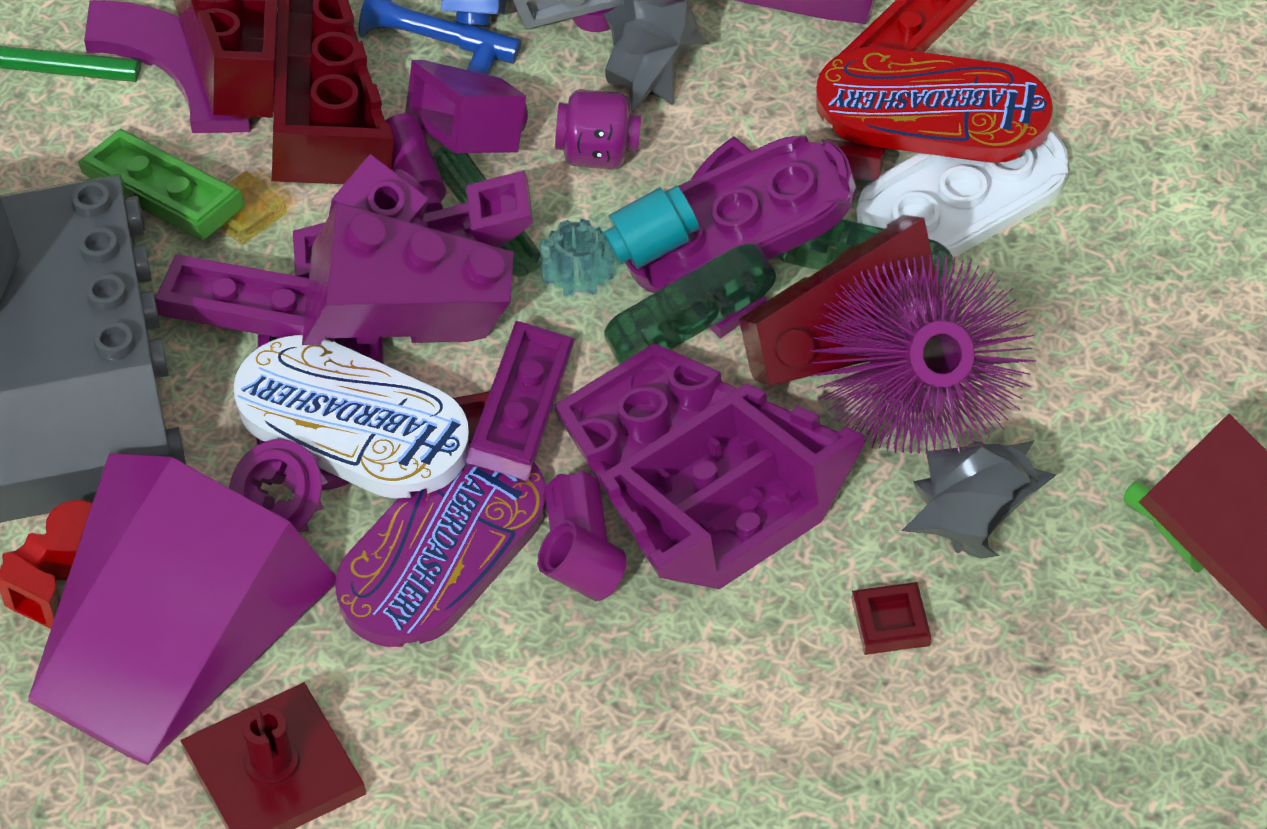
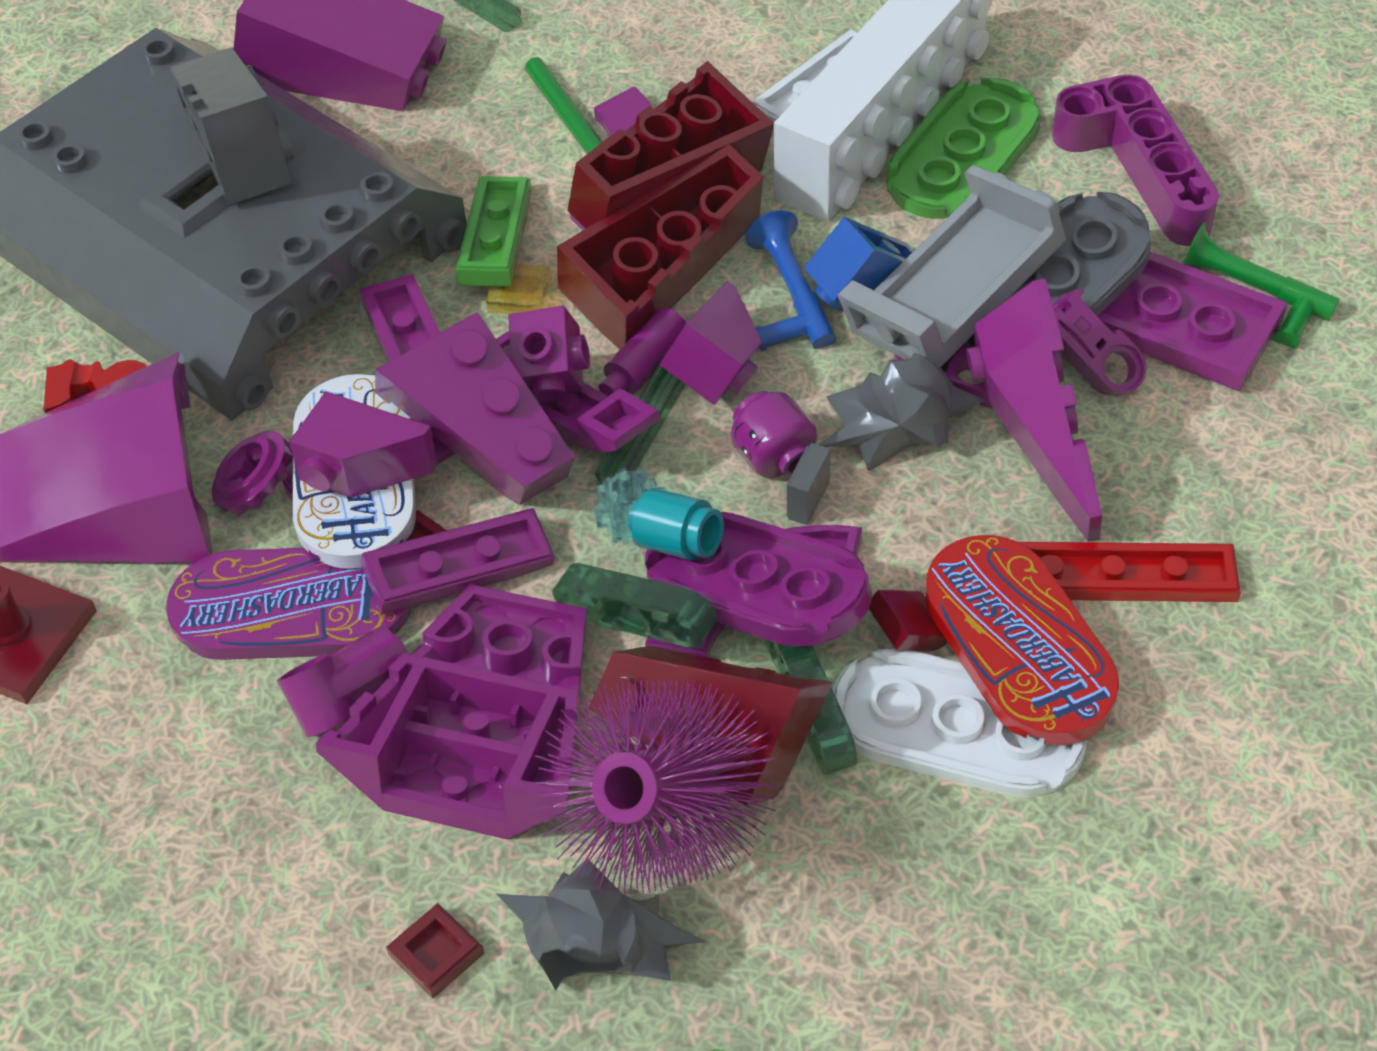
camera: 55 degrees right, 0 degrees up
(359, 382) = (359, 447): none -> magenta slope
(665, 138) = (808, 483): none -> dark grey tile

